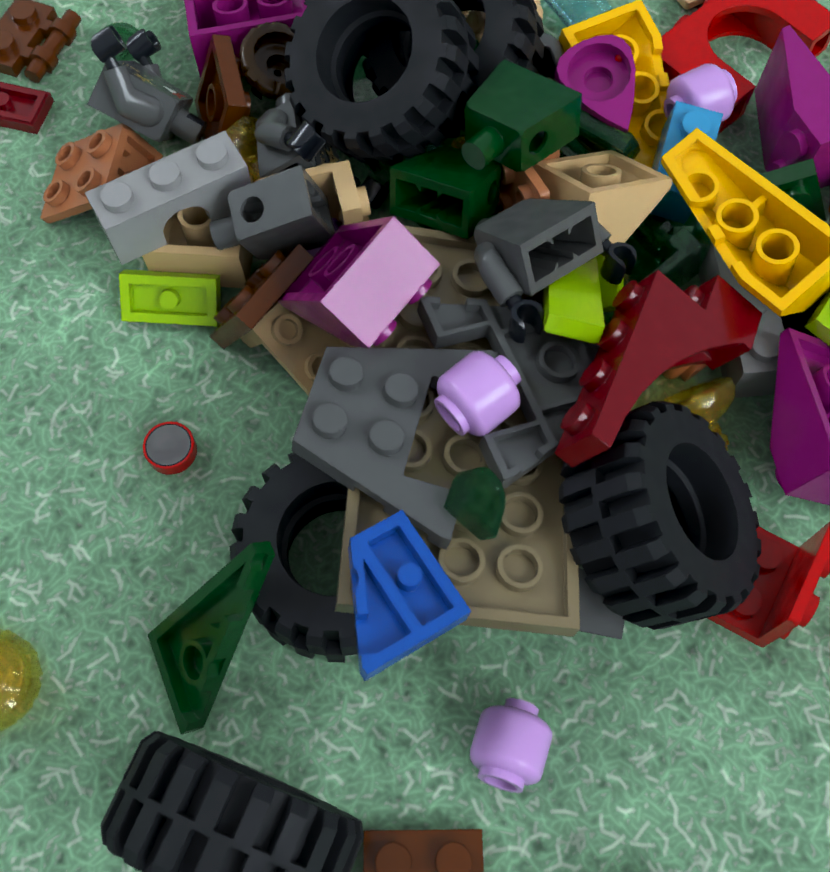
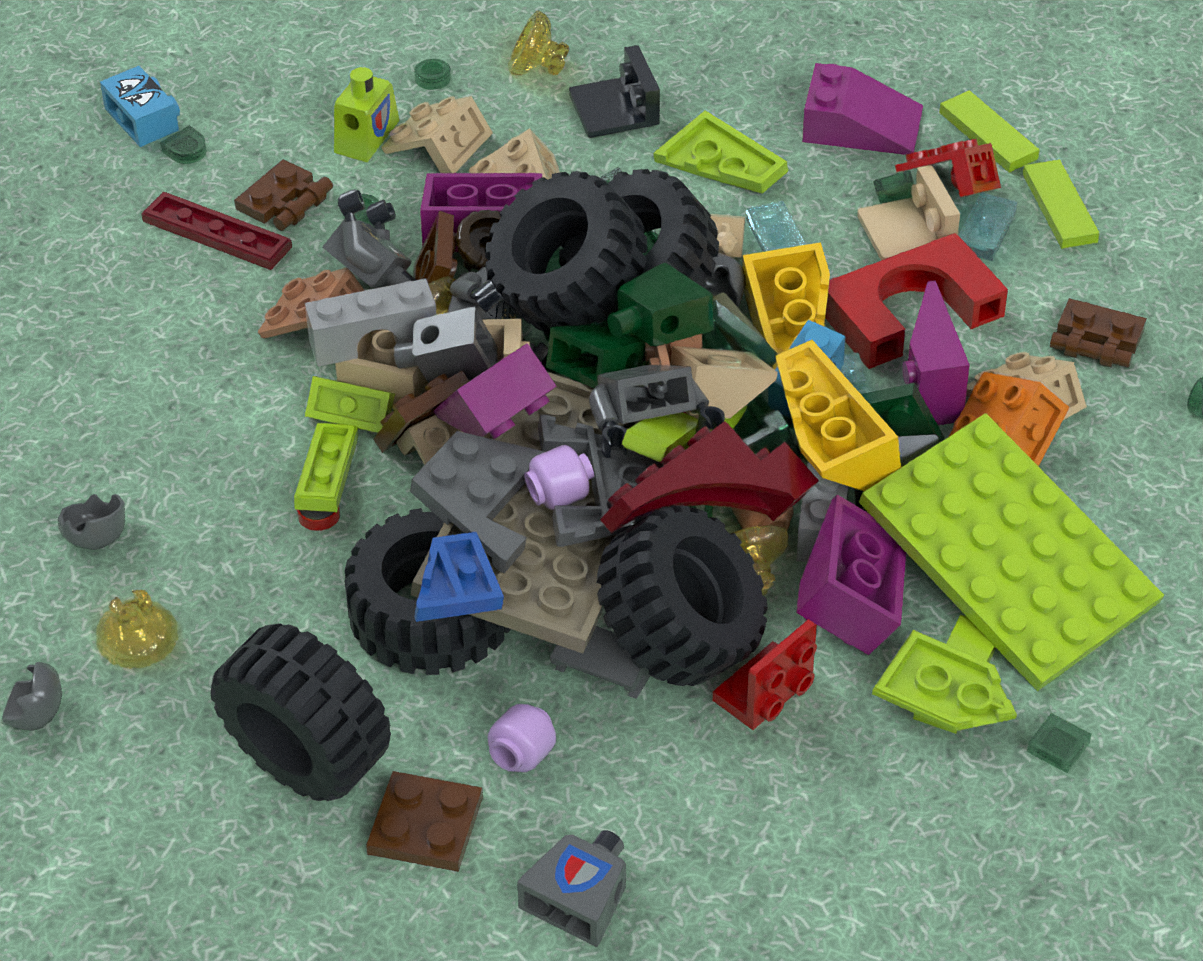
camera: 15 degrees right, 20 degrees down
(165, 391) = (326, 467): none -> lime tile
(203, 633) = (327, 596): dark green wing -> none
(477, 501) = (535, 544): clear green tile -> none
(605, 76) = (748, 292): magenta piece -> none
(705, 88) = (849, 320): lavender head -> none

